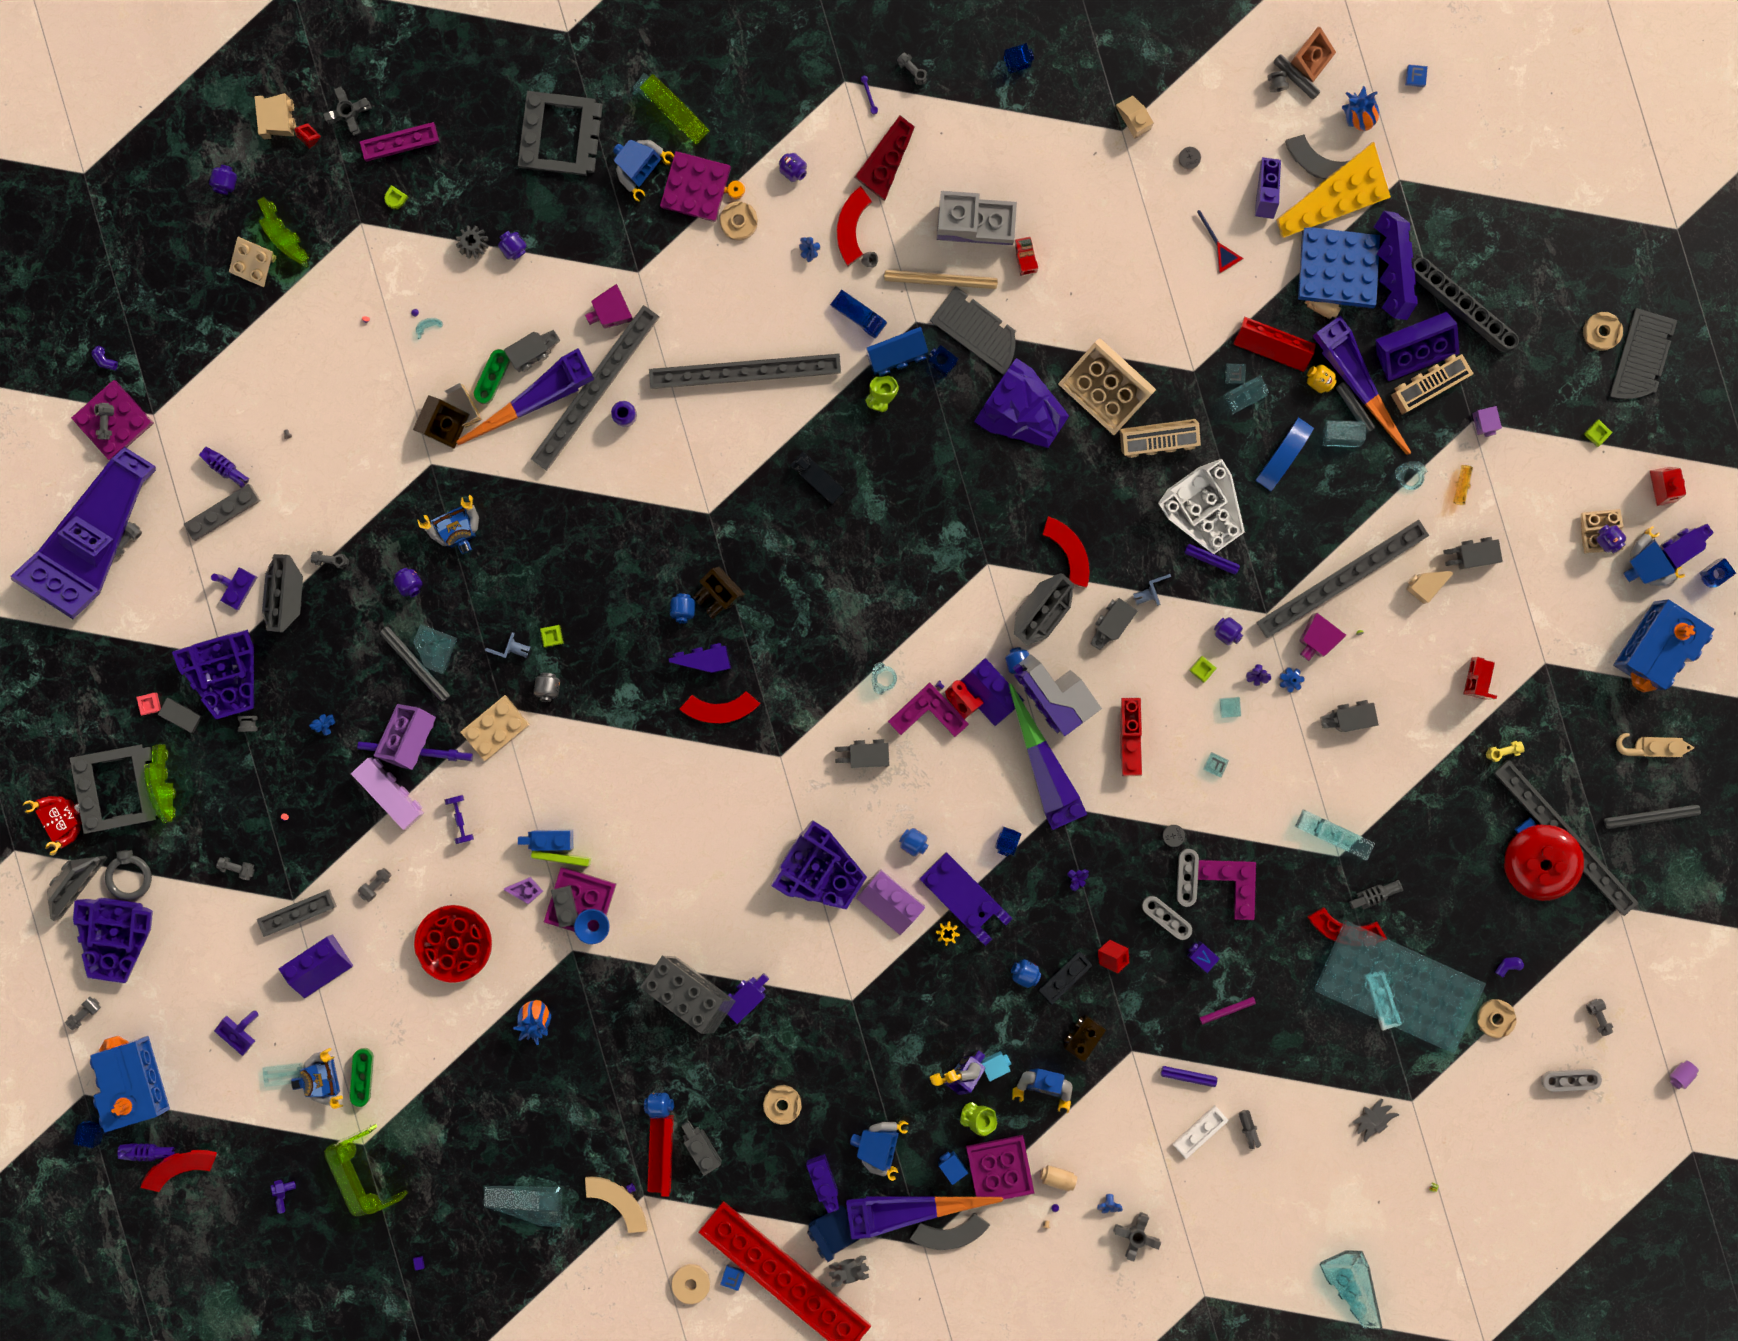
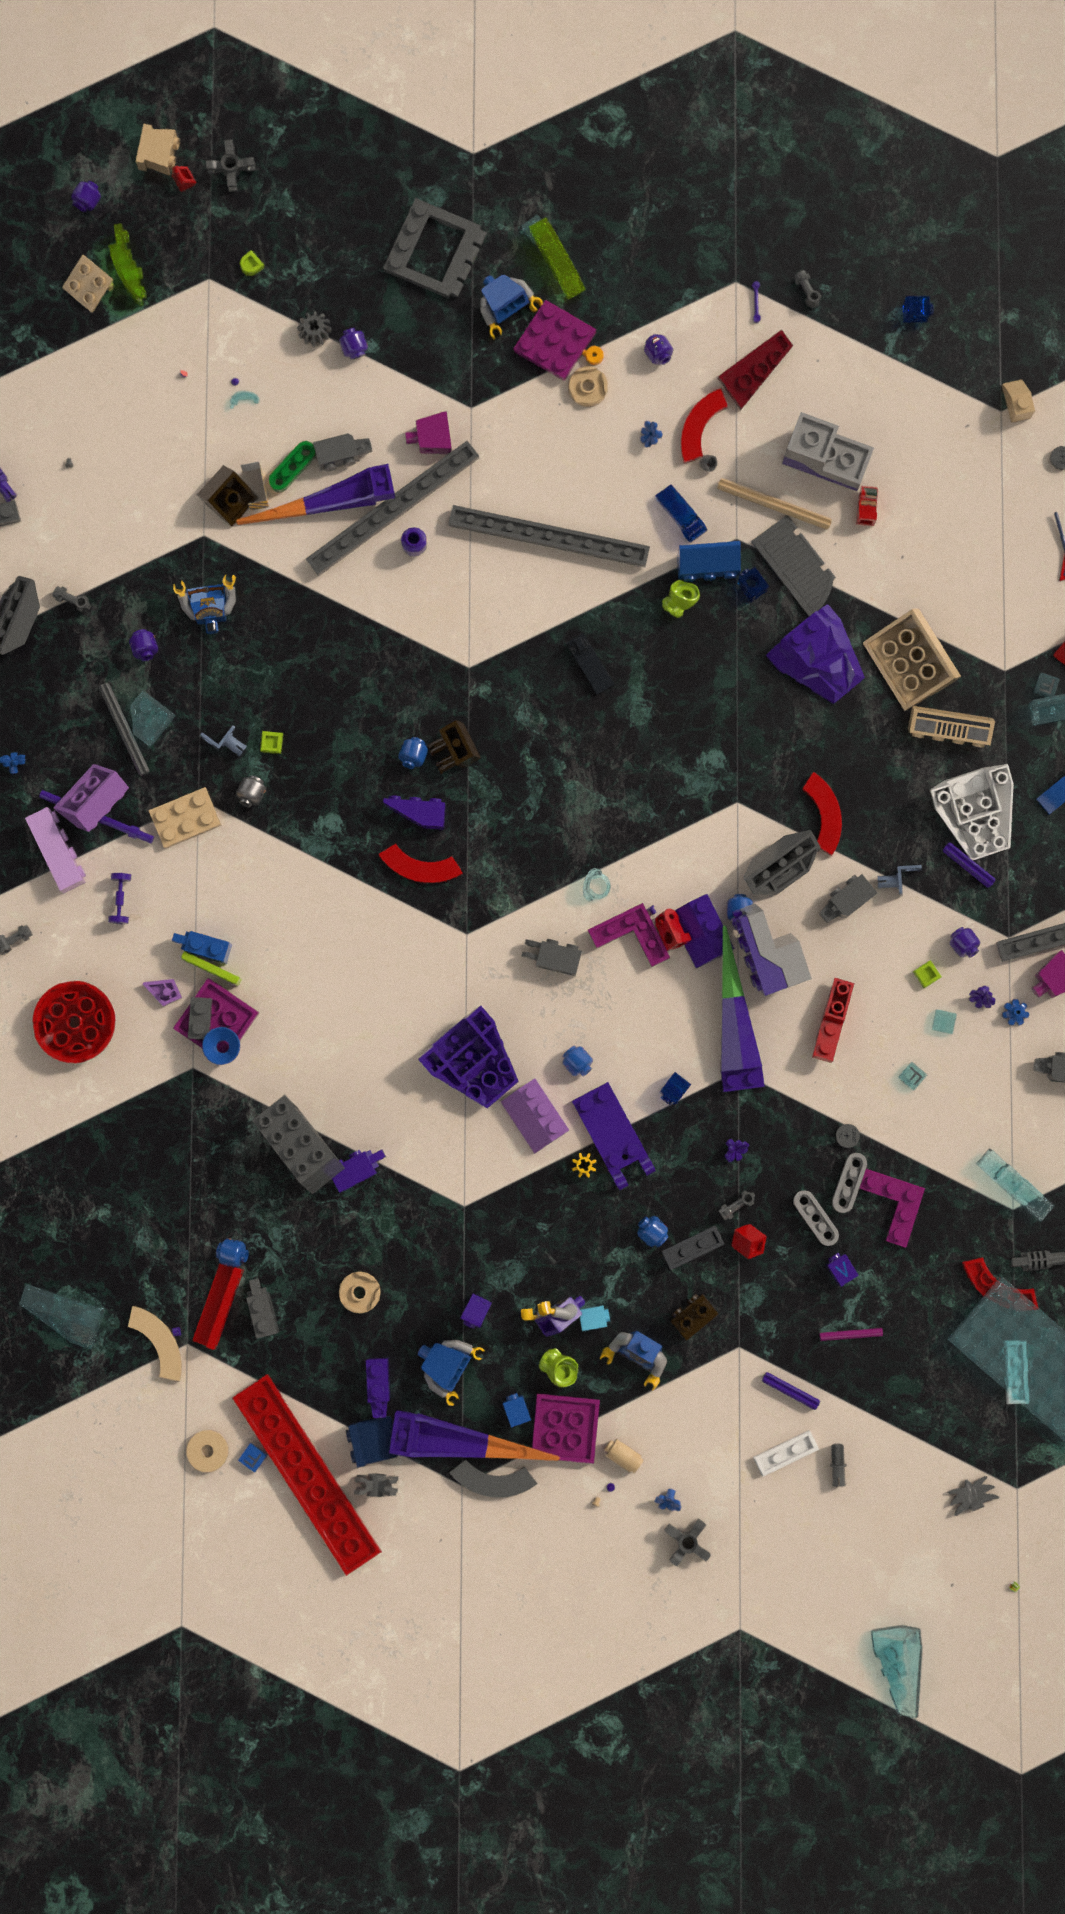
camera: 15 degrees right, 5 degrees down
(399, 141) = (272, 210): magenta plate -> none
(533, 1020) = (131, 1125): blue hair -> none
(890, 1094) = (475, 1311): none -> dark purple slope
(1100, 919) = (746, 1199): none -> dark grey bar

